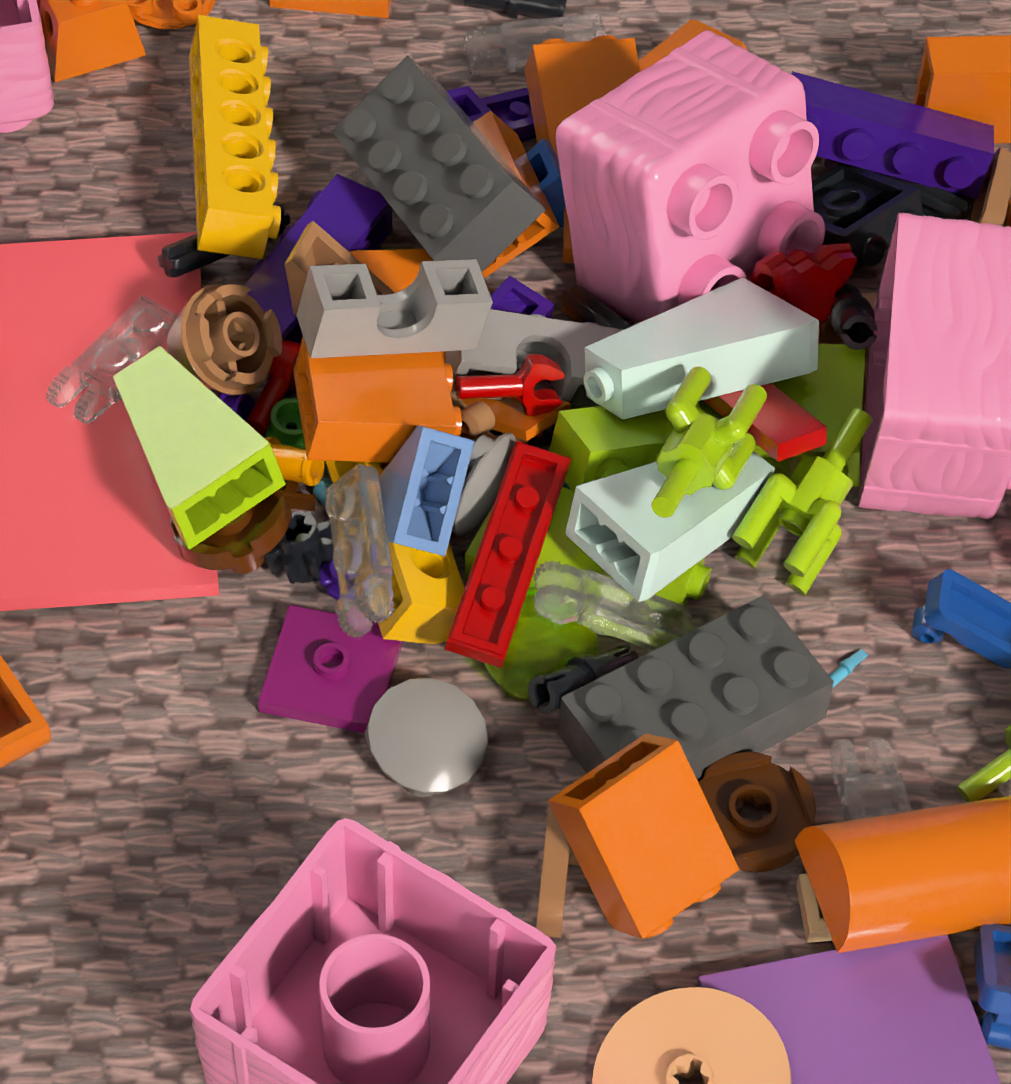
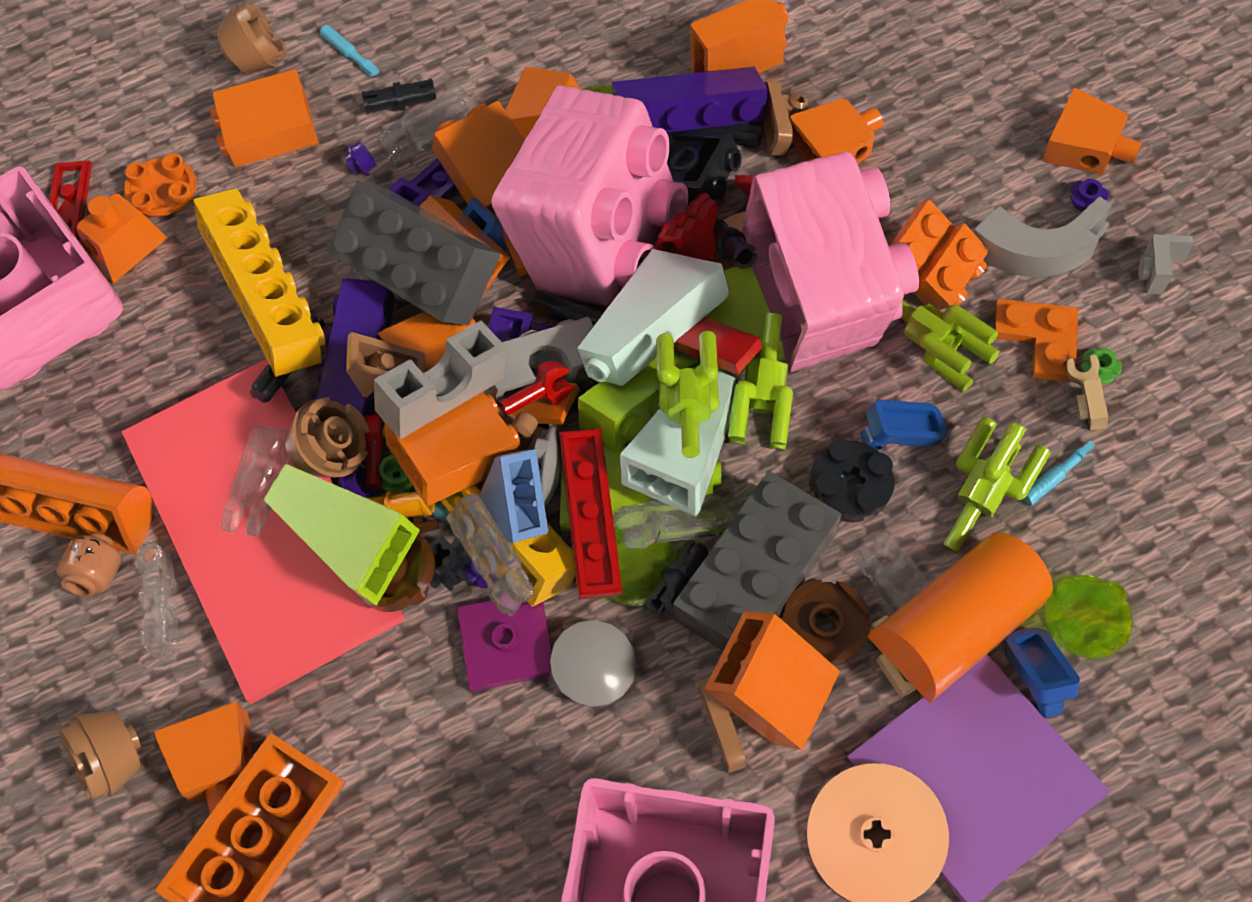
camera: 15 degrees left, 10 degrees up
(430, 51) = (359, 158): none -> dark purple plate
(891, 638) = (858, 459): none -> black plate

